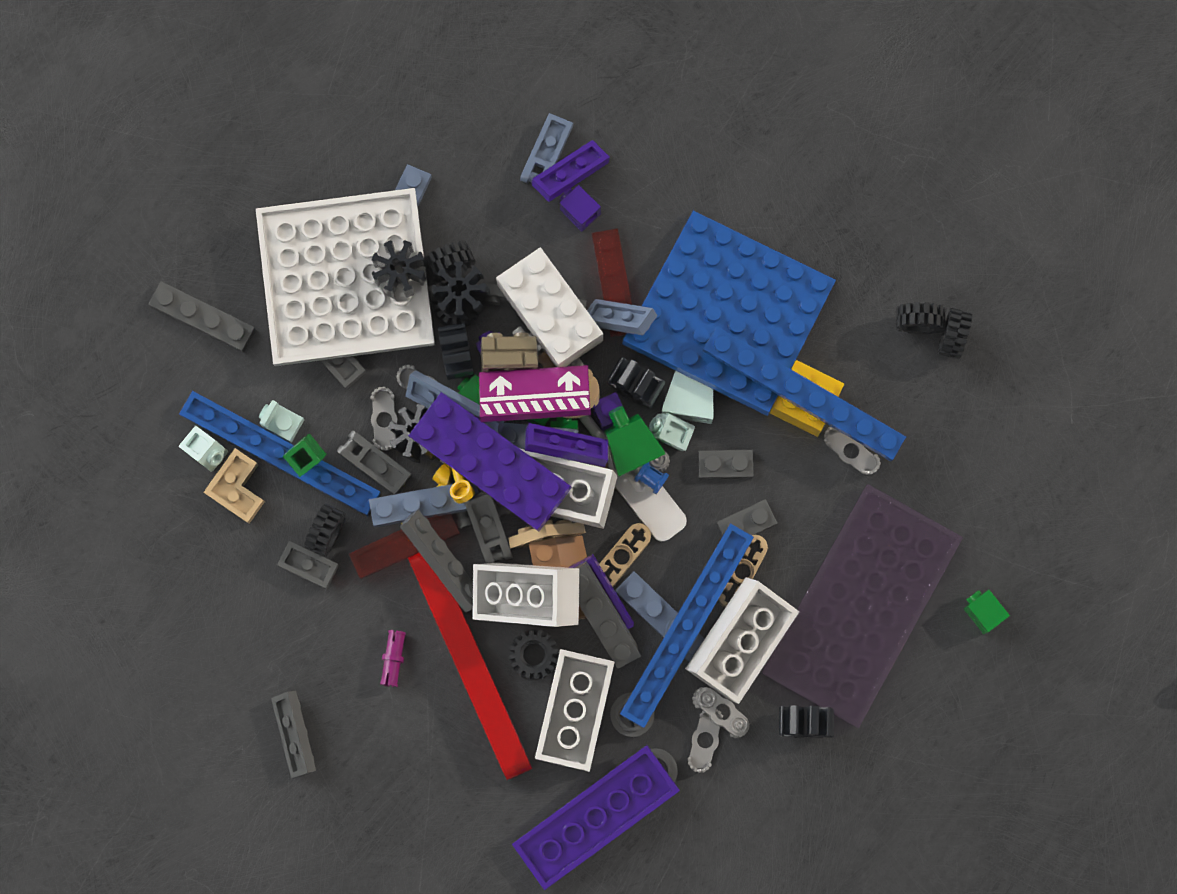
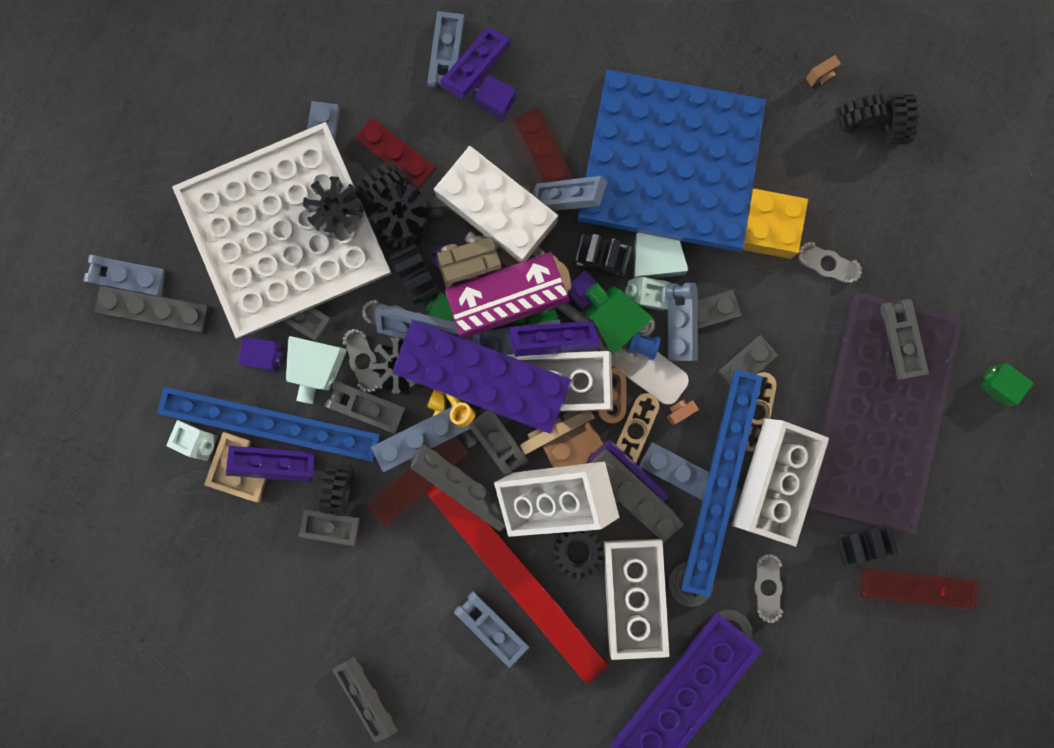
camera: 15 degrees left, 5 degrees up
(186, 278) = (125, 276): none -> sand blue plate
(270, 489) = (270, 464): none -> dark purple plate
(280, 421) = (260, 391): light aqua bracket -> none
(290, 386) = (260, 354): none -> dark purple brick
(304, 455) = (293, 421): green brick -> none
(336, 410) = (312, 366): none -> light aqua torso
(393, 658) = (440, 596): magenta pin -> none
(432, 704) = (492, 630): none -> sand blue plate
(468, 228) = (390, 148): none -> dark red plate
(613, 520) = (619, 398): none -> medium nougat plate
(670, 549) = (681, 411): none -> nougat plate
(694, 466) = (682, 322): none -> sand blue plate
(708, 700) = (762, 550): light grey piece -> none
(804, 393) = (773, 220): blue plate -> none
(847, 780) = (919, 588): none -> clear red plate
(897, 269) = (823, 72): none -> medium nougat plate
(898, 541) = (904, 339): none -> dark grey plate

